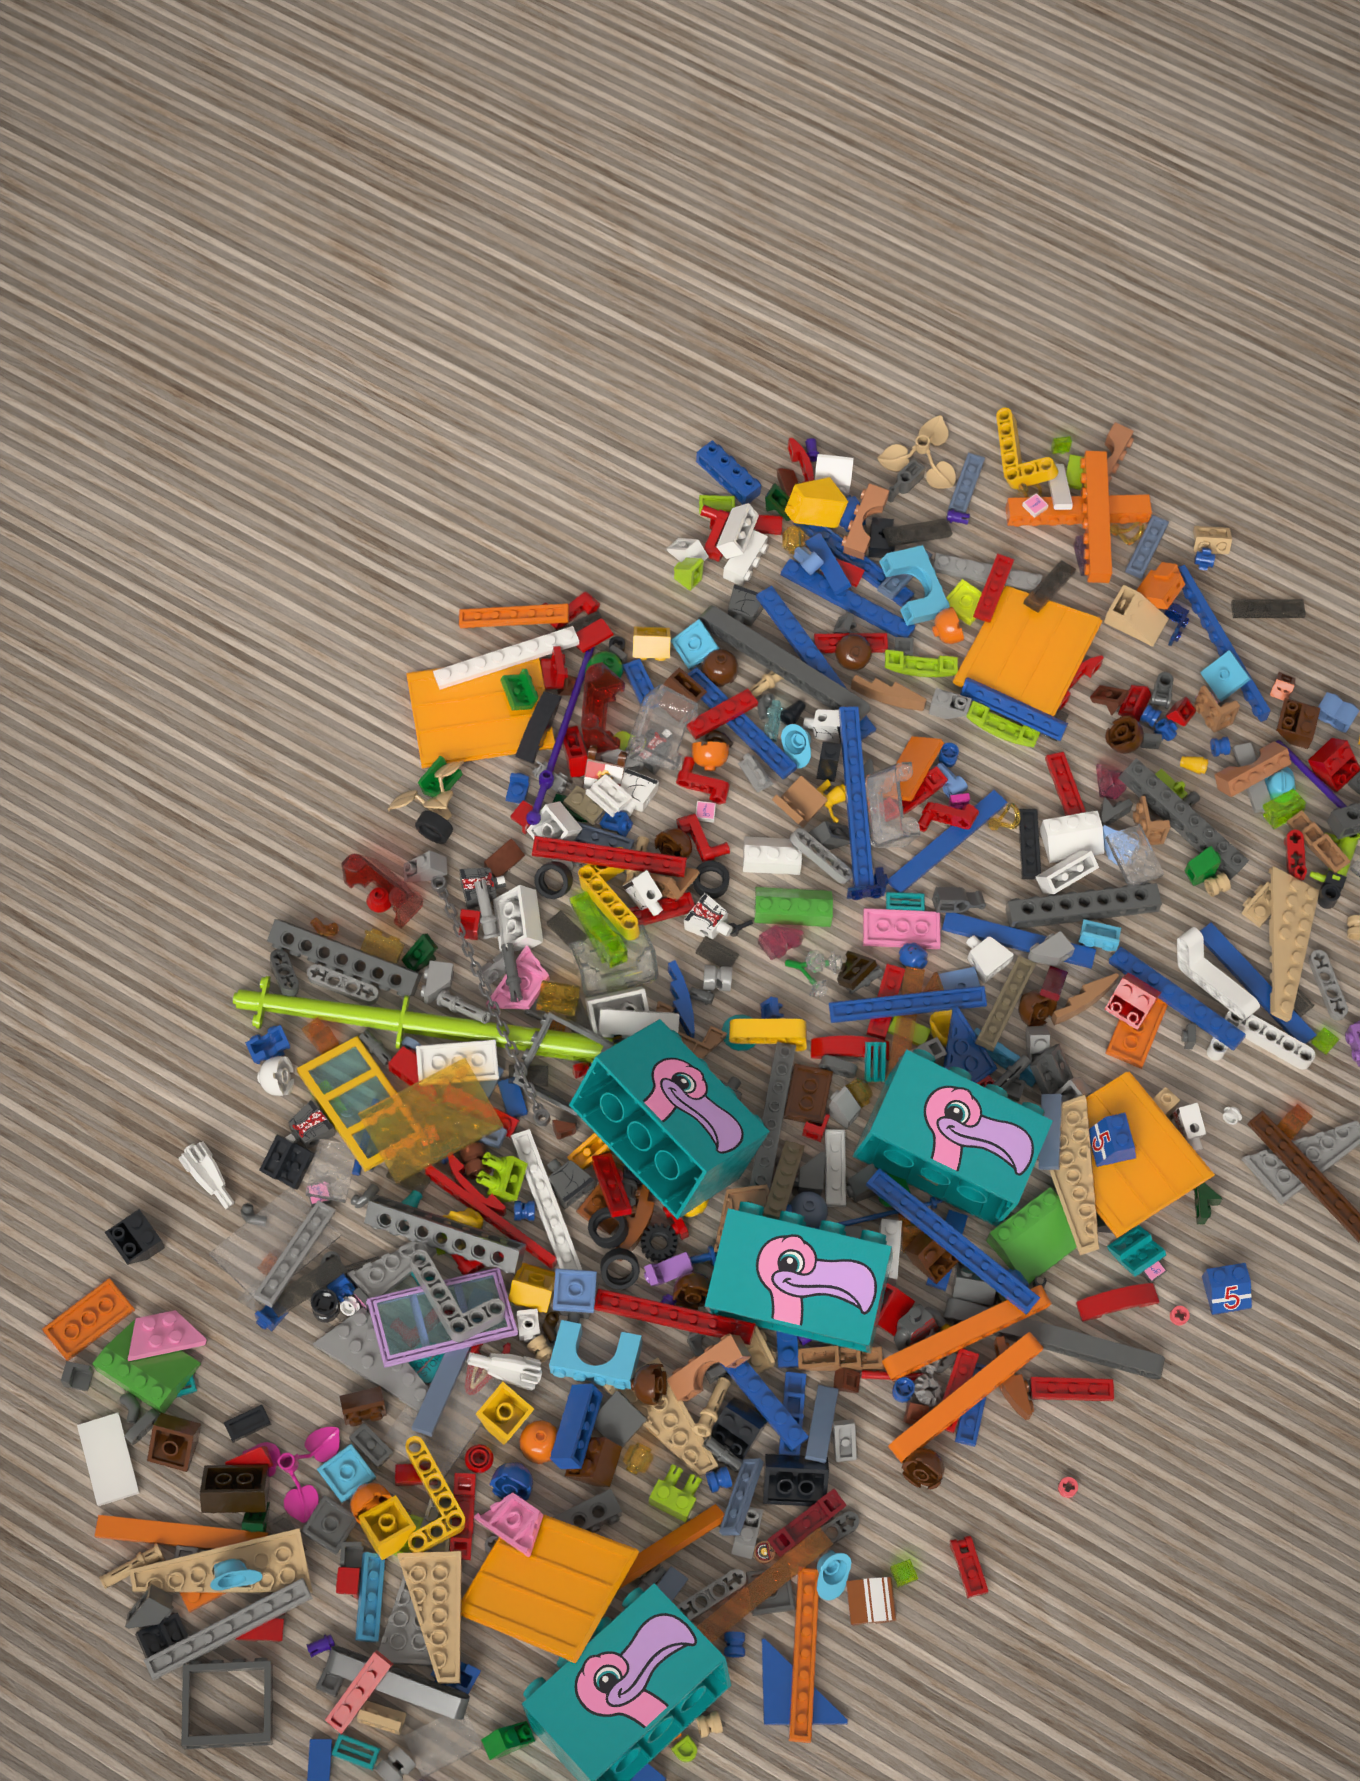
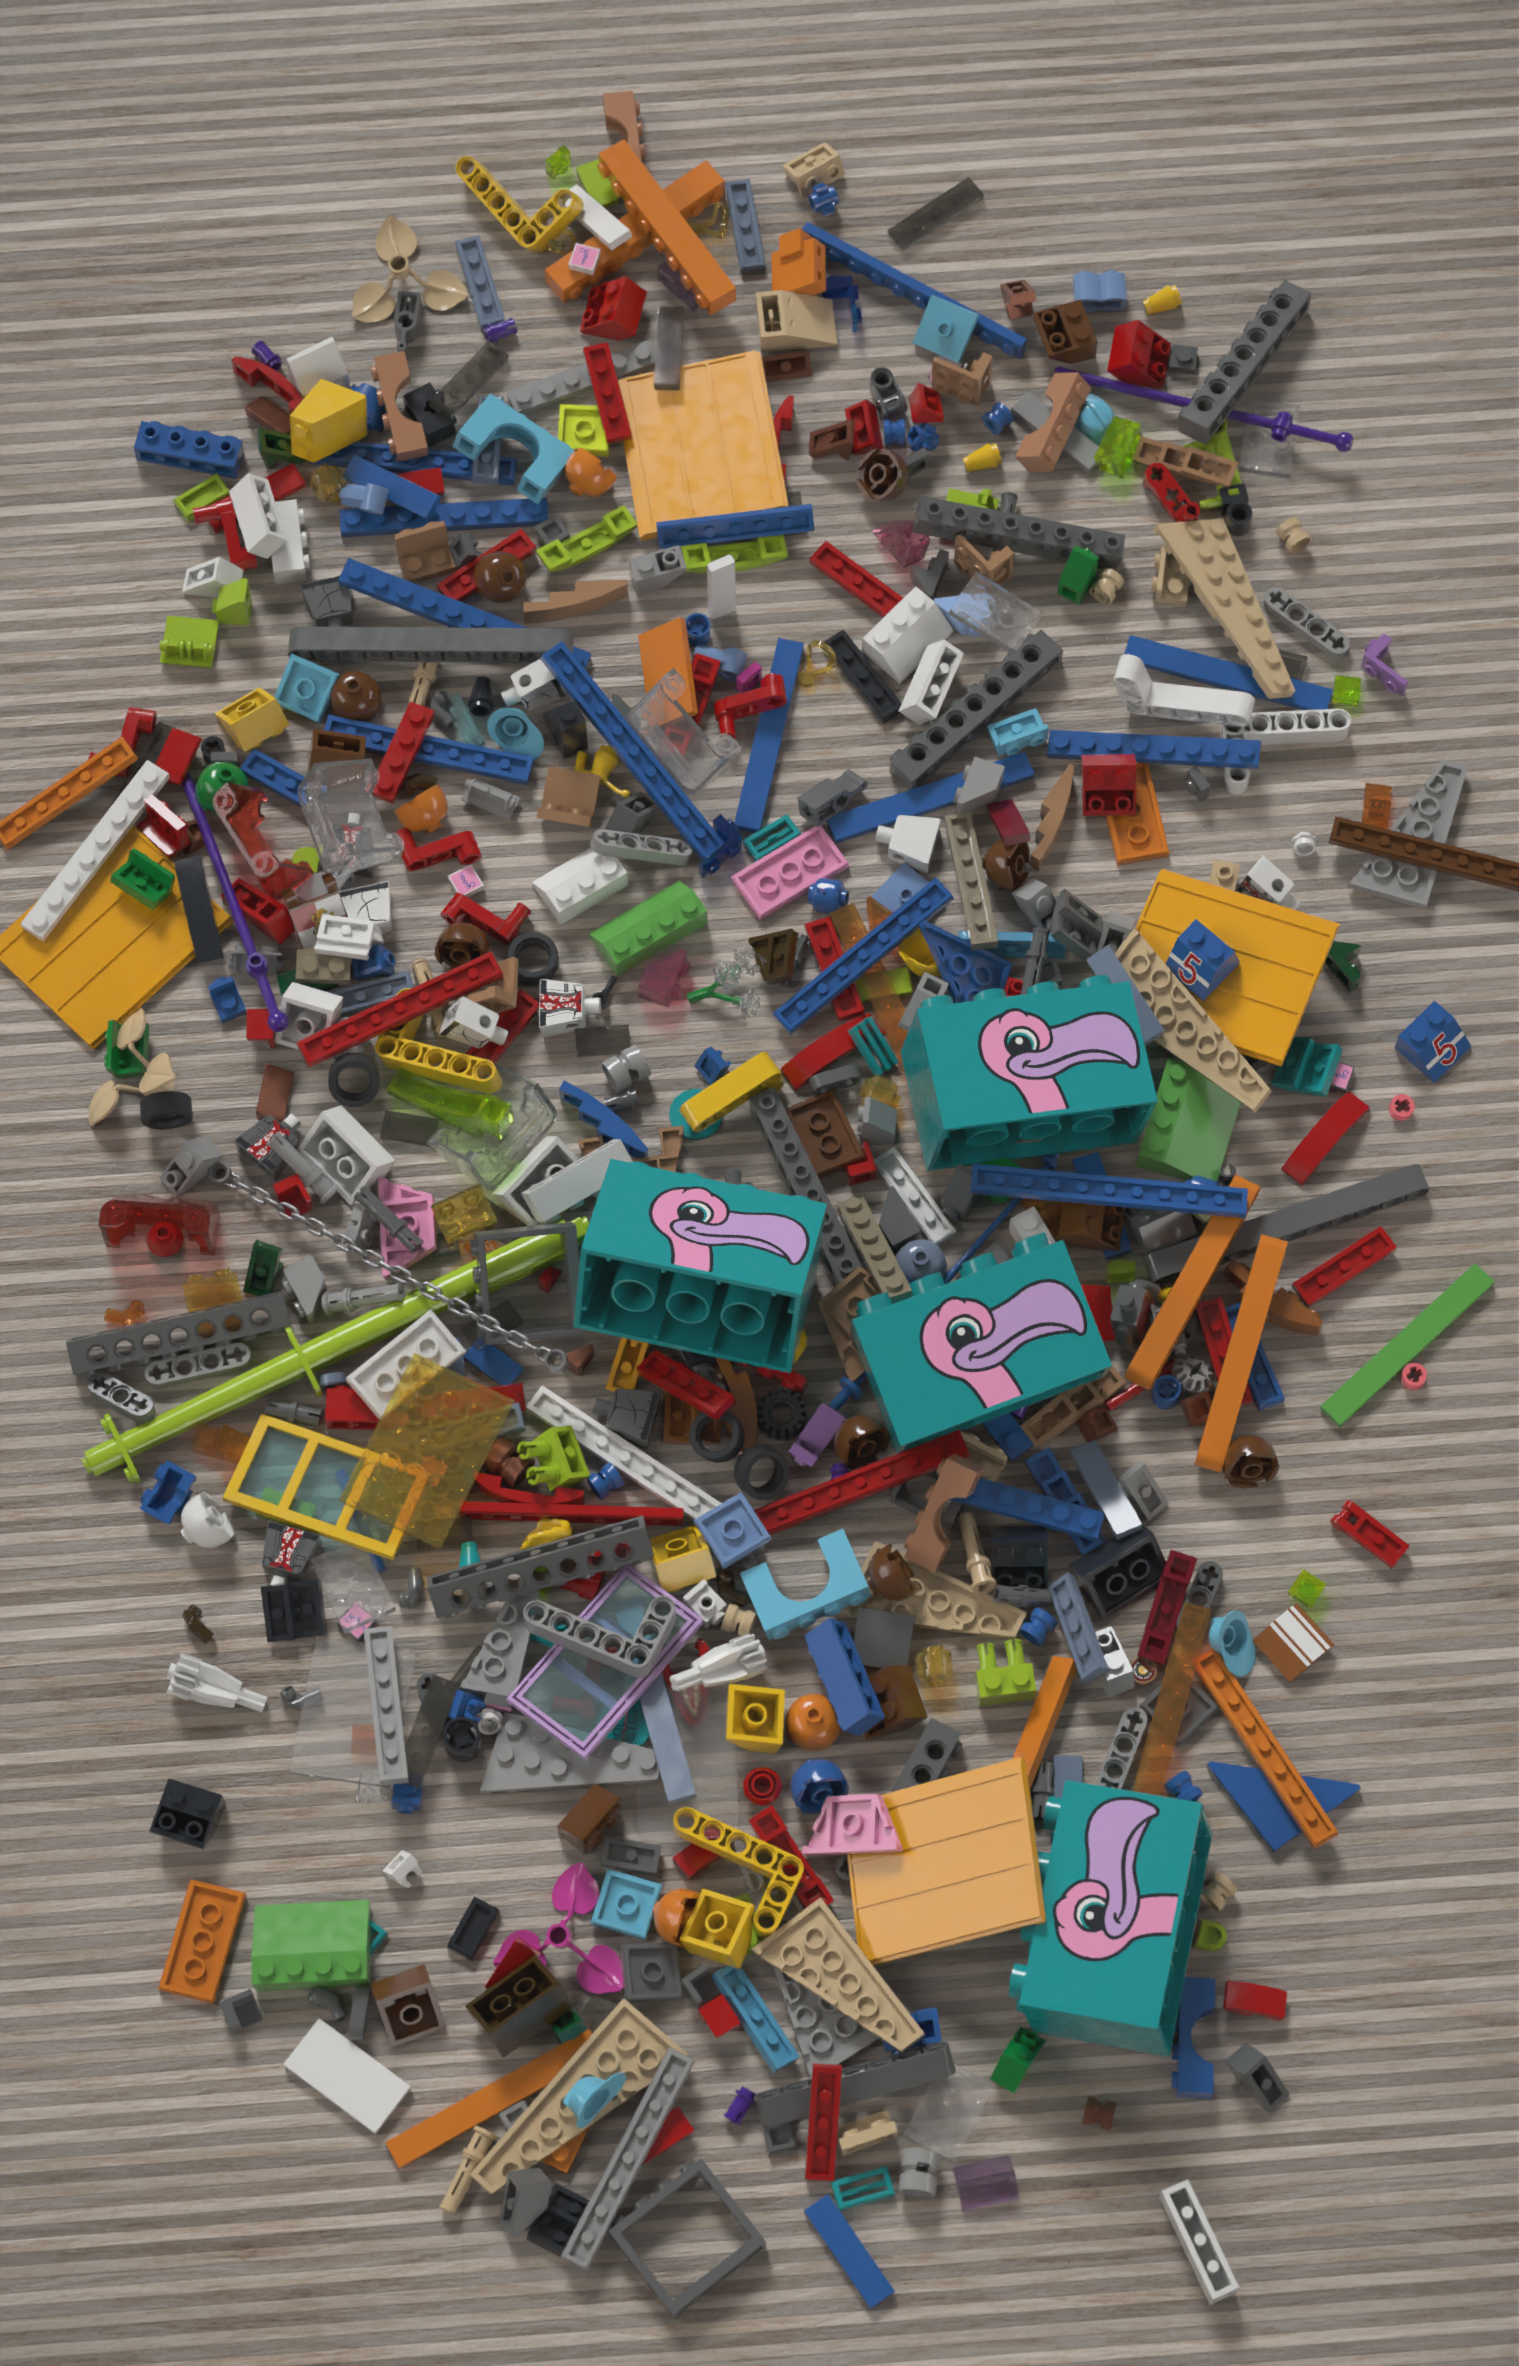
camera: 30 degrees left, 5 degrees up
(162, 1334) = (304, 1898): bright pink wing -> none
(225, 1132) = (194, 1625): none -> dark brown arm
(233, 1355) = (400, 1866): none -> white tile
(648, 577) = (189, 641): none -> lime hinge
(820, 611) = (424, 552): none -> medium nougat bracket
(929, 1296) = (1120, 1271): none -> clear neon green plate
(977, 736) = (721, 587): none -> white tile
(1033, 545) = (614, 309): none -> red slope
(1078, 1465) = (1407, 1345): none -> bright green tile
(1113, 639) = (787, 365): none -> copper slope

